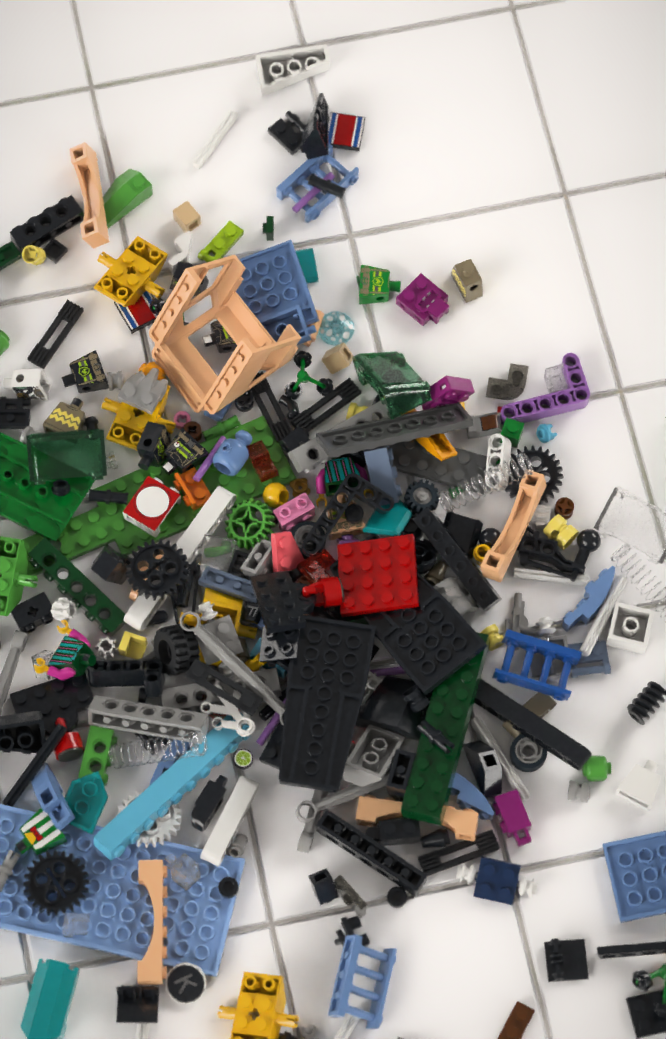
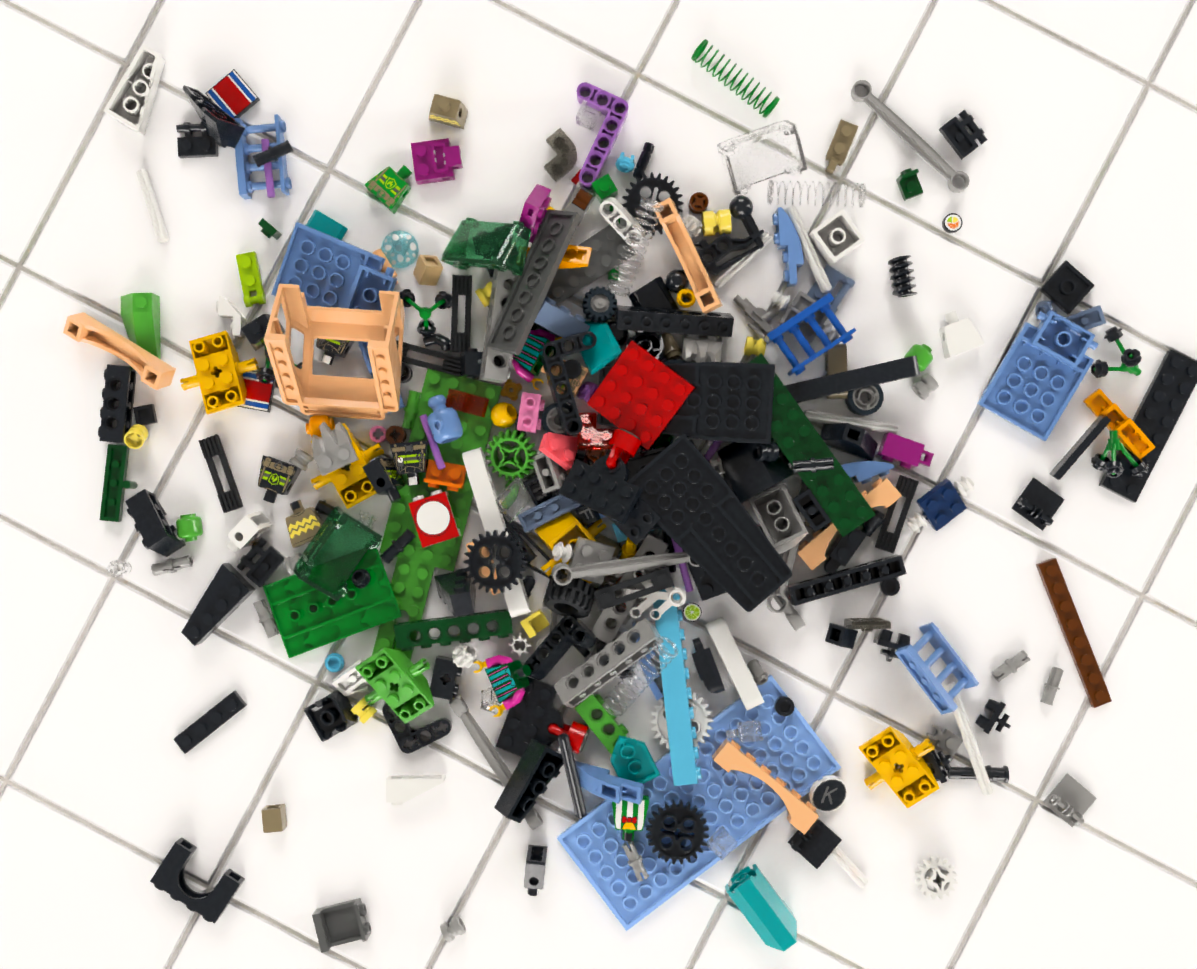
camera: 50 degrees left, 20 degrees up
(187, 217) = (204, 286): tan panel -> none
(560, 444) = (643, 160): none -> black axle

